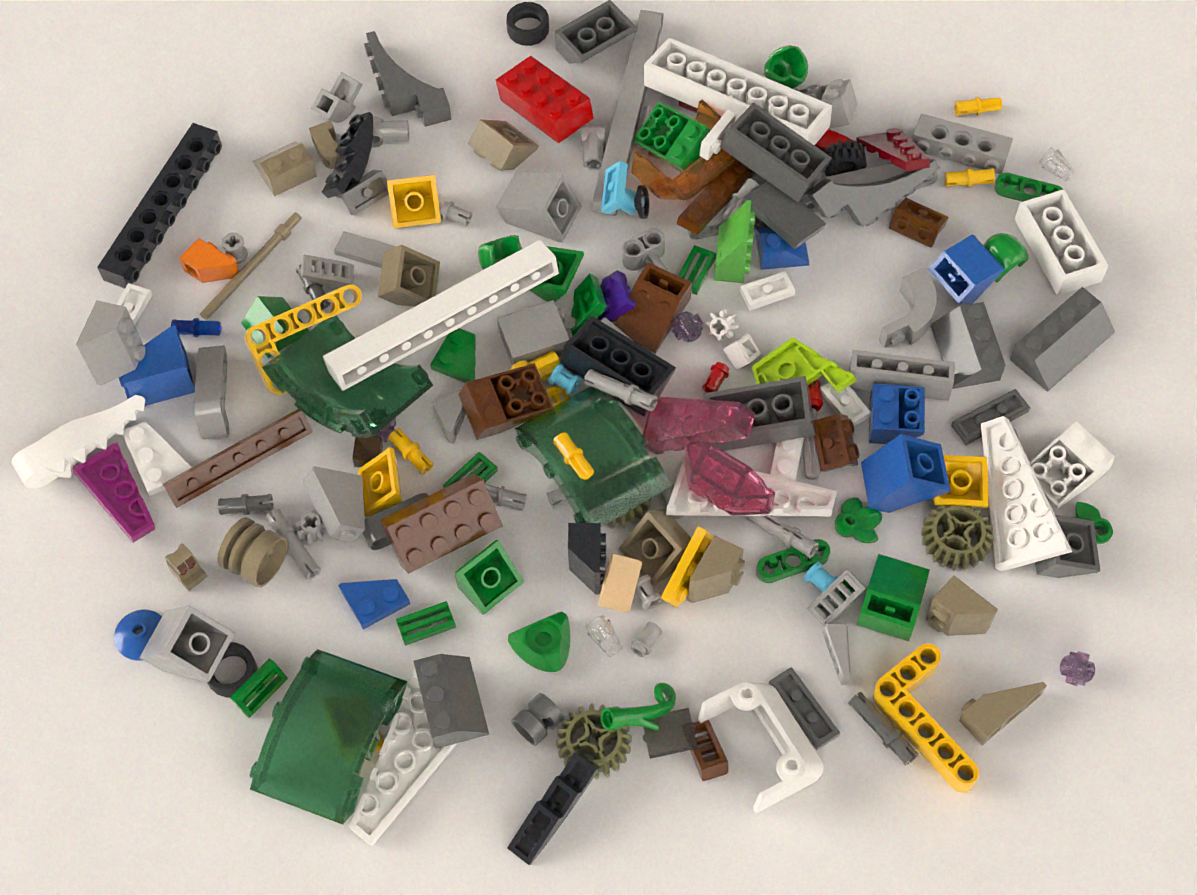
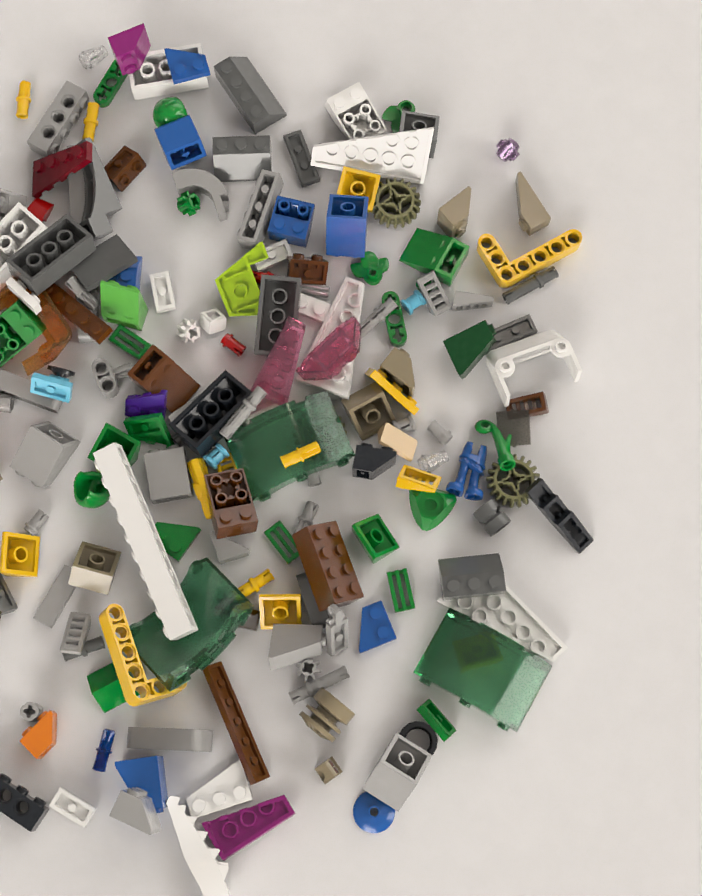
camera: 80 degrees left, 15 degrees up
(245, 504) = (277, 720): dark grey pin -> none
(282, 232) = (23, 671): dark tan bar -> none
(358, 544) = (336, 630): none -> light grey hinge
(583, 604) = (412, 479): none -> yellow slope
(610, 678) = (476, 464): none -> blue piece
(687, 326) = (185, 356): clear purple gear -> none
(770, 656) = (470, 346): none -> dark green slope
(845, 157) = (57, 206): black tyre -> none
(892, 302) = (188, 203): none -> green gear
(1067, 183) = (130, 48): none -> magenta slope
(1069, 253) = (186, 65): none -> blue wing

